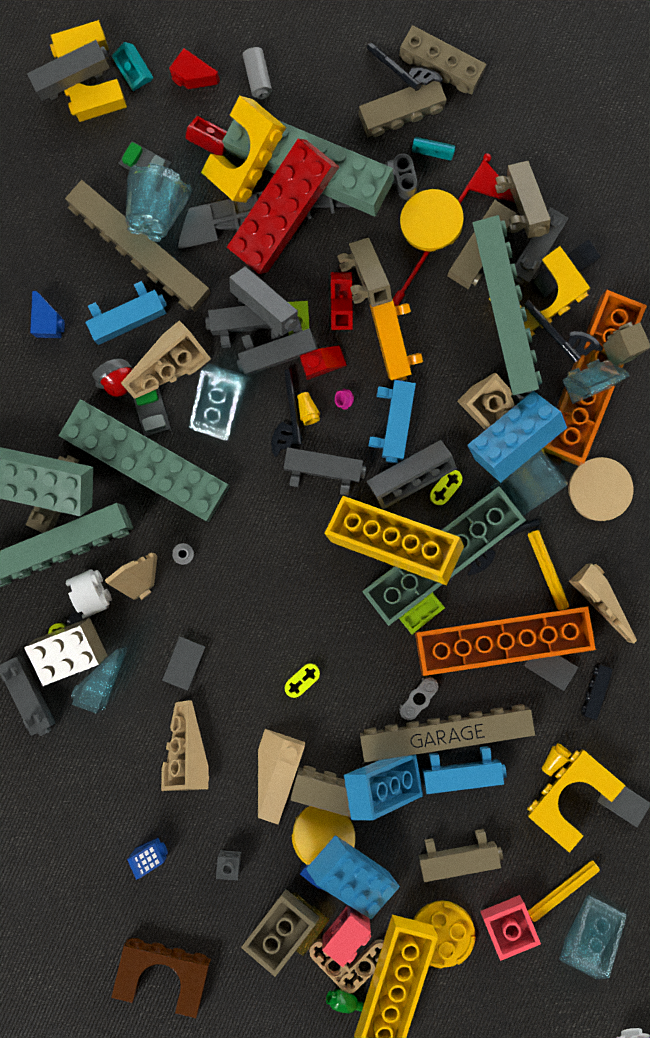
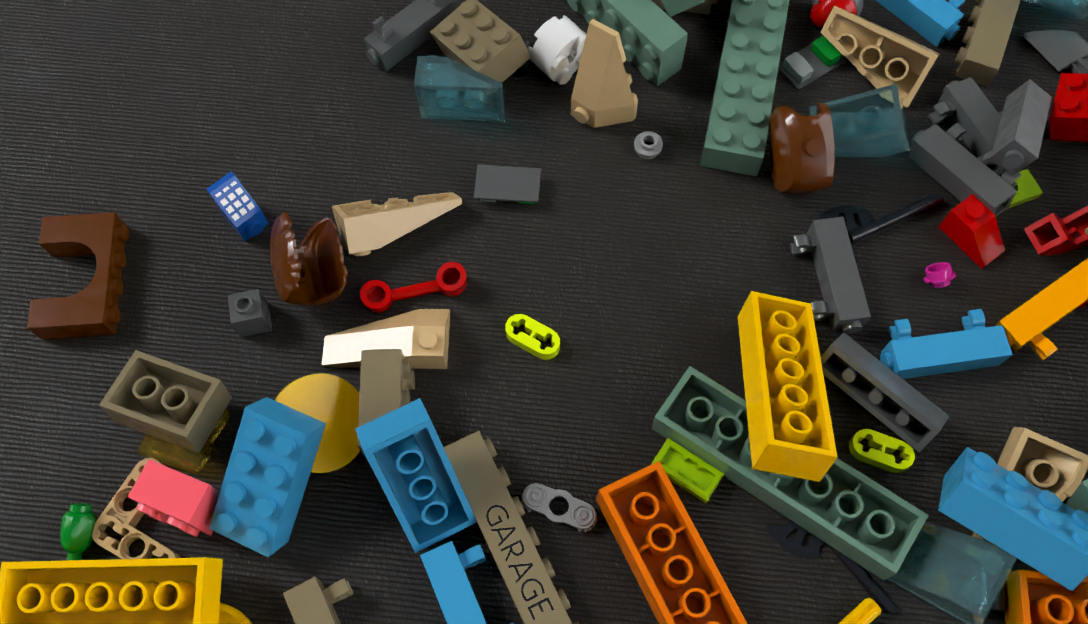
camera: 70 degrees right, 20 degrees down
(208, 819) = (313, 271): none -> reddish brown animal
(235, 457) = (802, 150): none -> reddish brown animal
(241, 774) = (450, 281): none -> red piece
(308, 411) = (901, 234): yellow cone -> none

